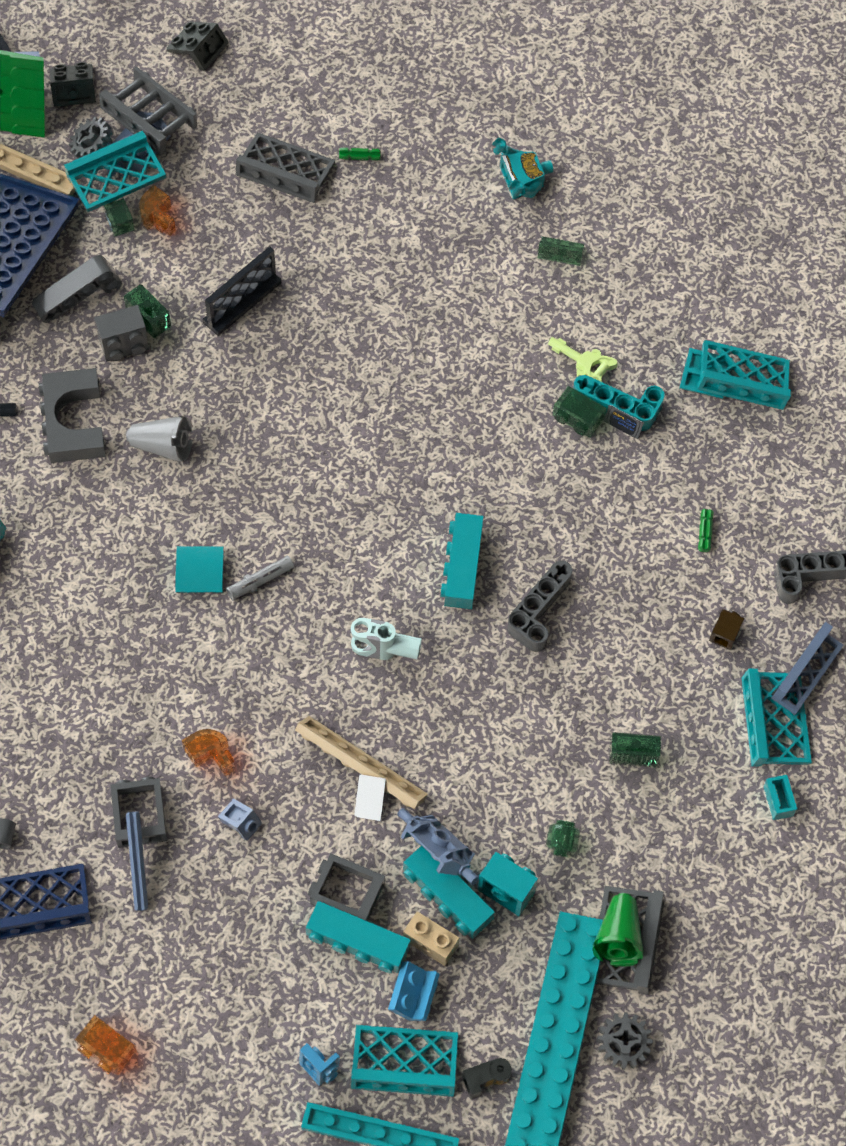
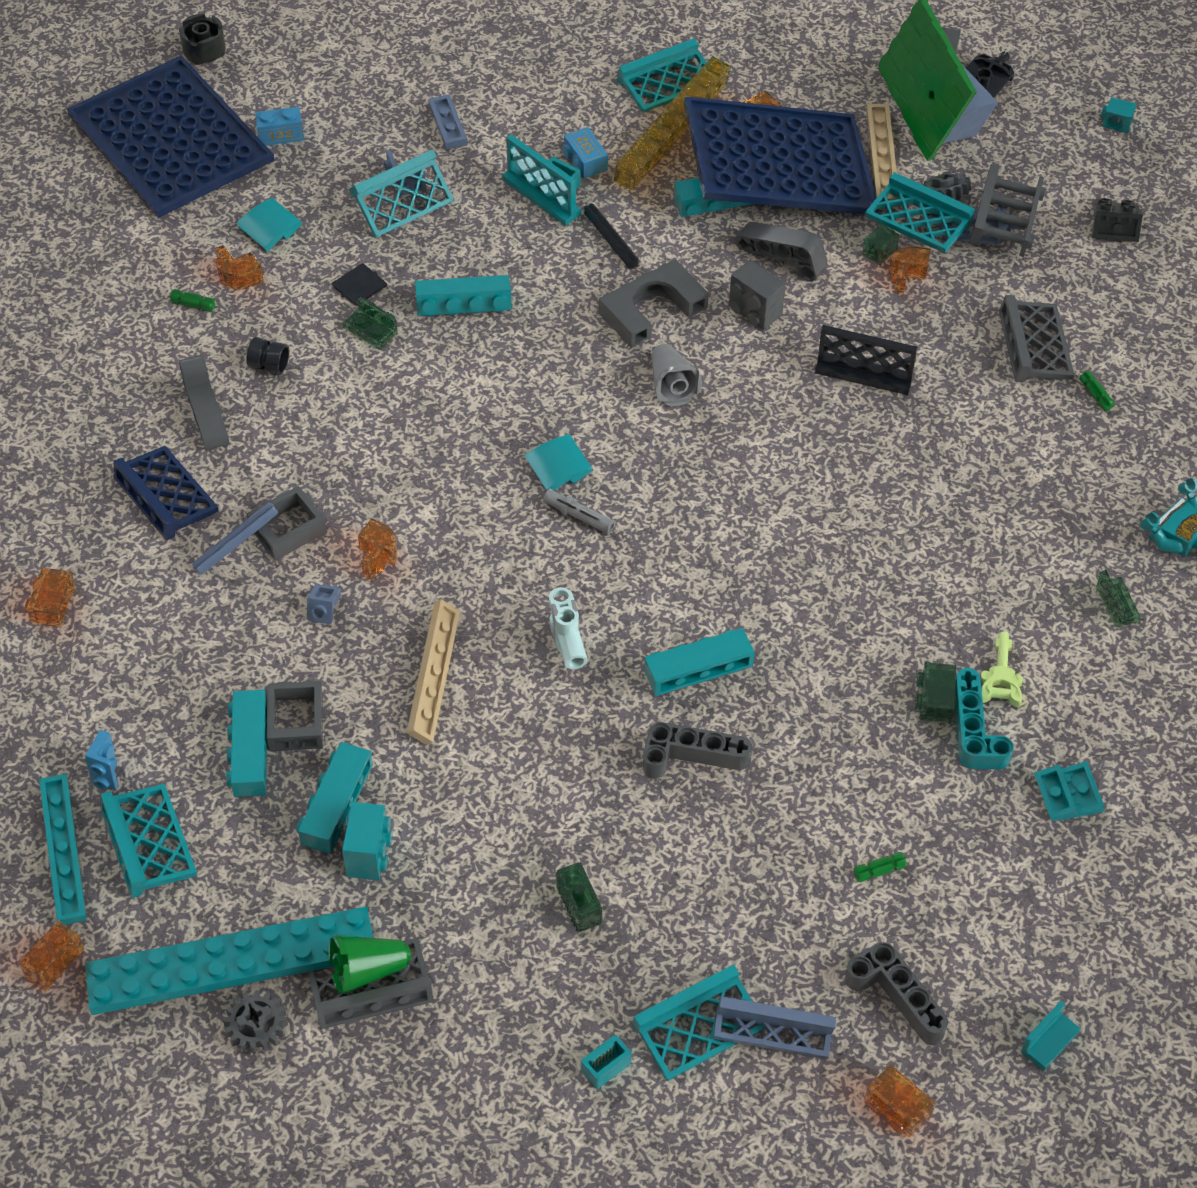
camera: 65 degrees right, 10 degrees down
(72, 84) = (994, 148): pearl dark grey bracket -> none
(154, 314) = (795, 304): clear green brick -> none
(370, 797) = (400, 693): white sticker -> none
(413, 992) = (217, 812): dark azure bracket -> none
(431, 938) = (278, 804): tan brick -> none
(440, 843) = (365, 775): sand blue plate -> none
(486, 1074) = (161, 911): pearl dark grey leg -> none
(563, 838) = (447, 875): clear green head -> none
(623, 422) = (953, 736): black sticker -> none
(726, 629) = (773, 930): dark brown brick -> none
(743, 387) = (1073, 835): teal fence -> none

